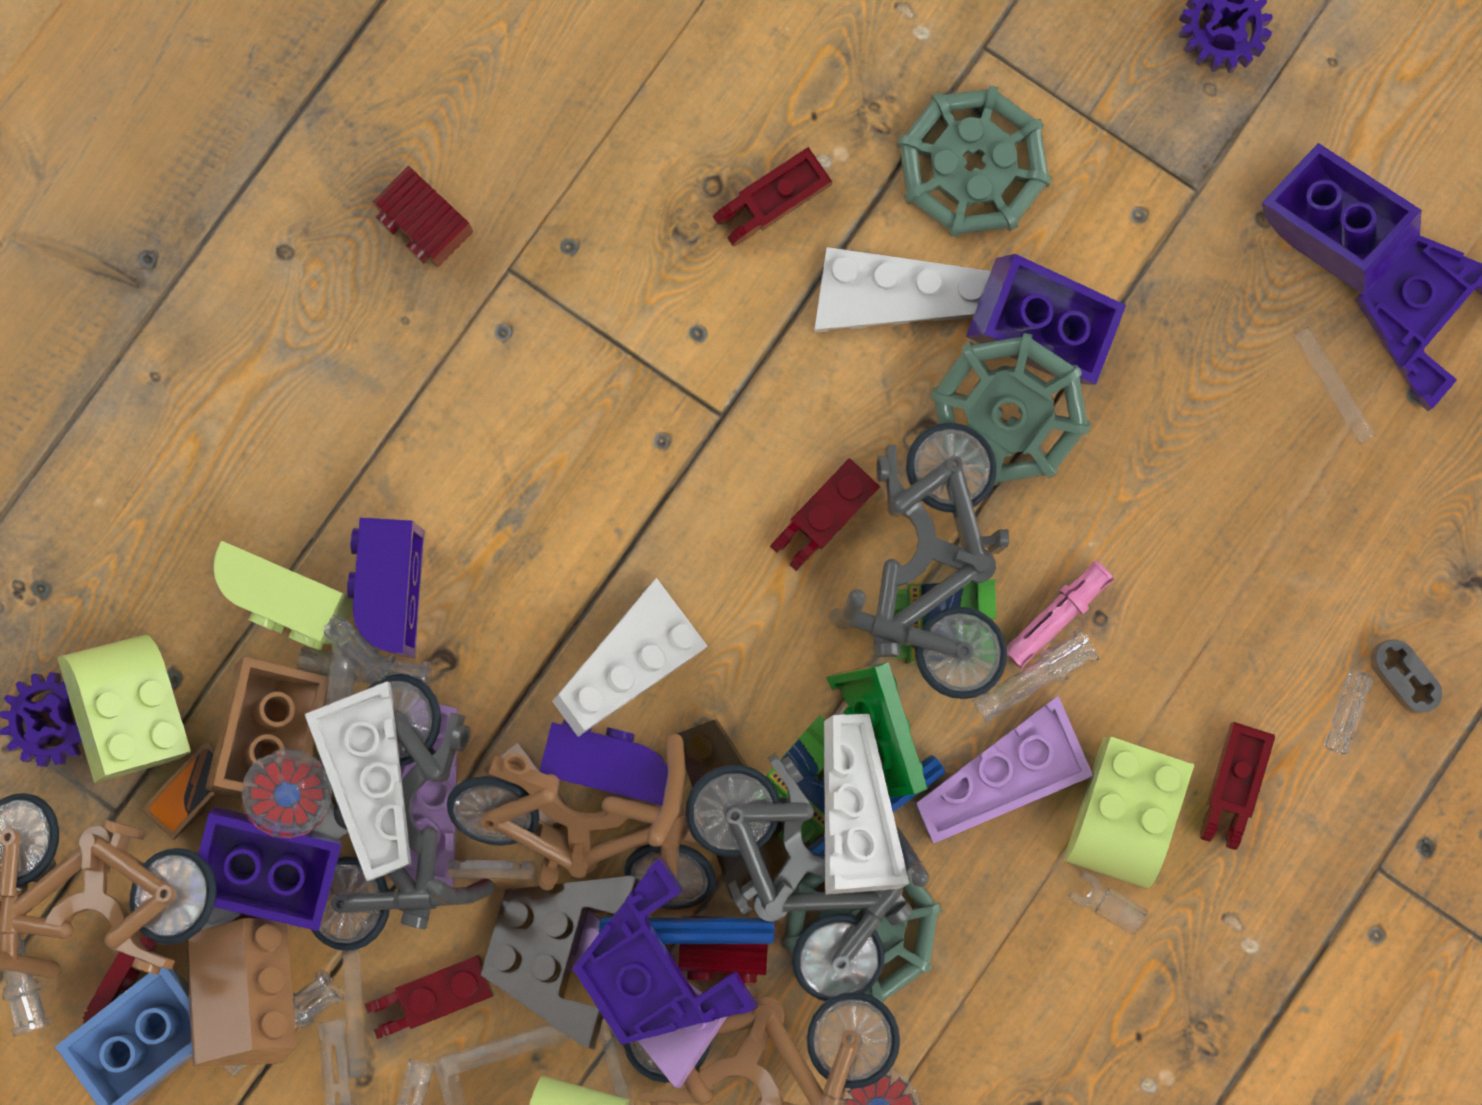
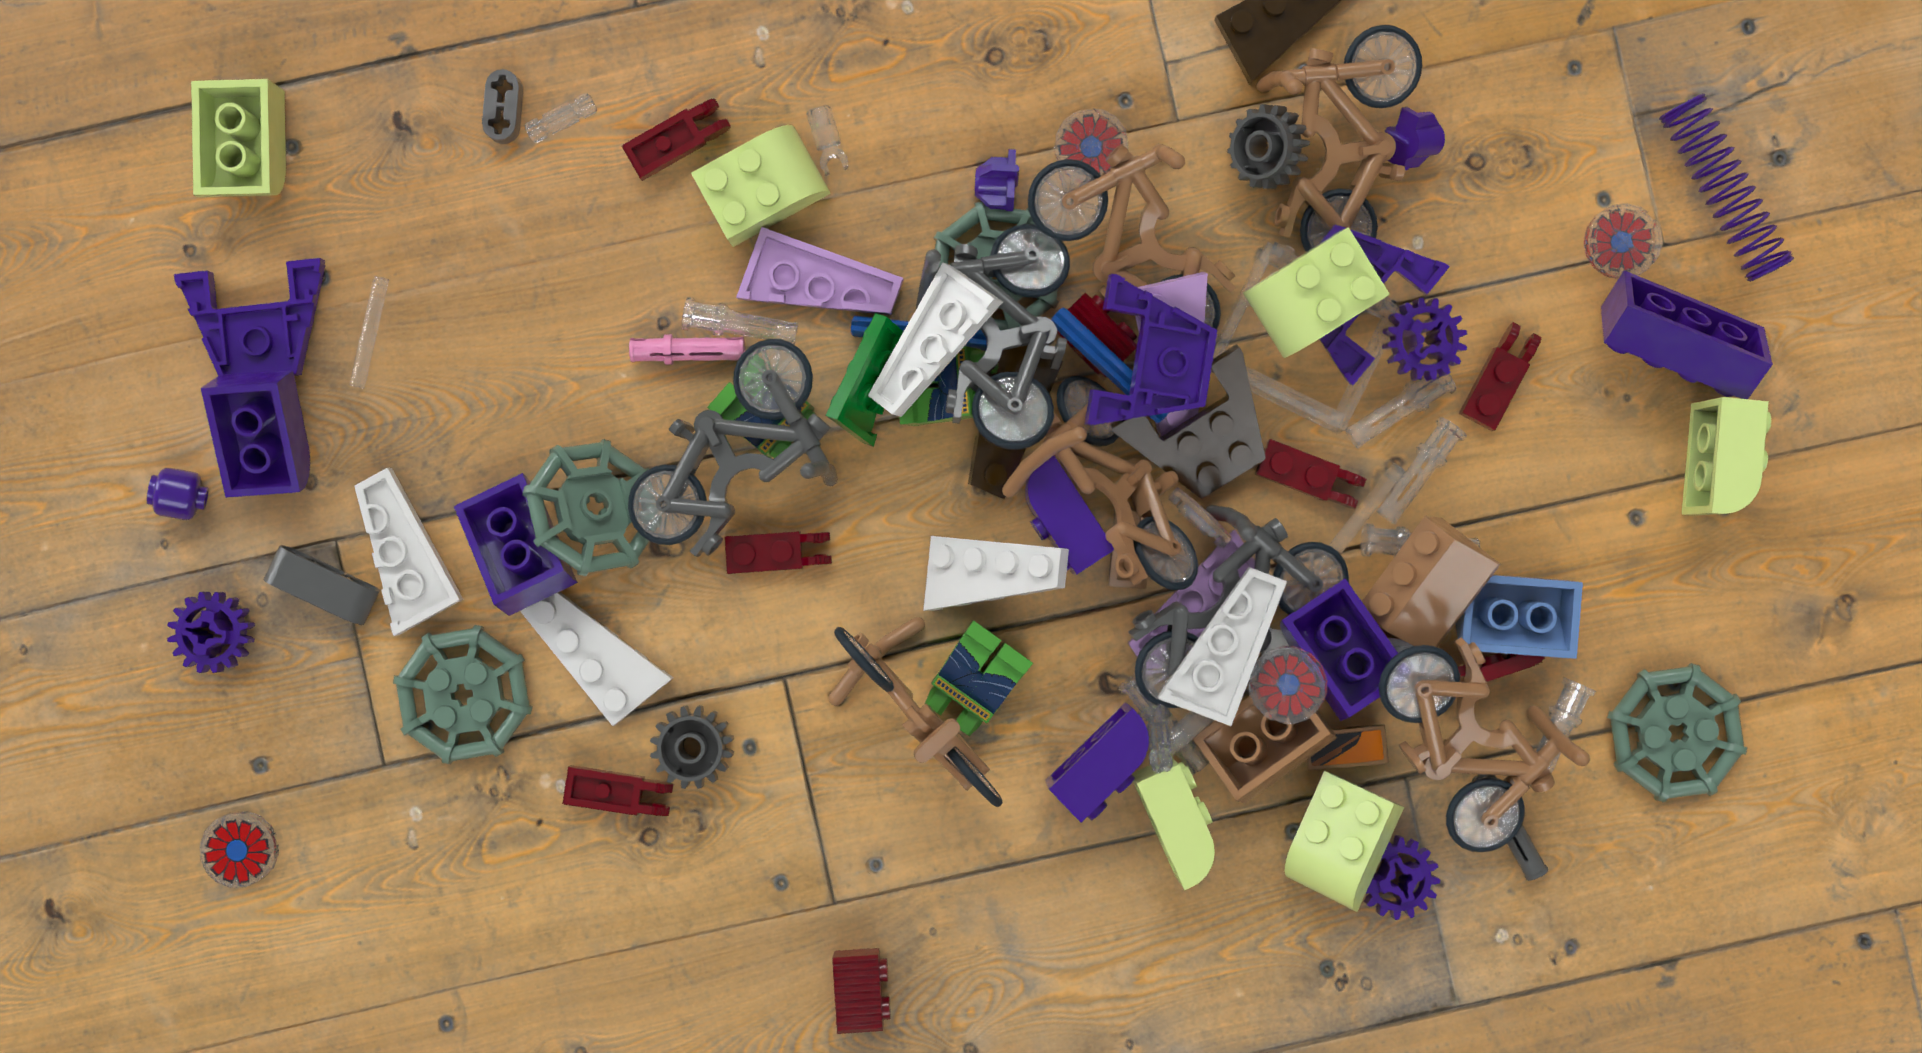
camera: 135 degrees left, 5 degrees up
(544, 476) = (936, 737): none -> medium nougat piece
(558, 548) = (970, 687): none -> hips
(750, 267) = (672, 752): none -> dark grey gear
(931, 1002) = (997, 181): none -> dark purple piece
(1120, 227) = (409, 566): none -> white wing
(1173, 144) = (321, 585): none -> dark grey beam
(1360, 110) = (176, 493): none -> dark purple head

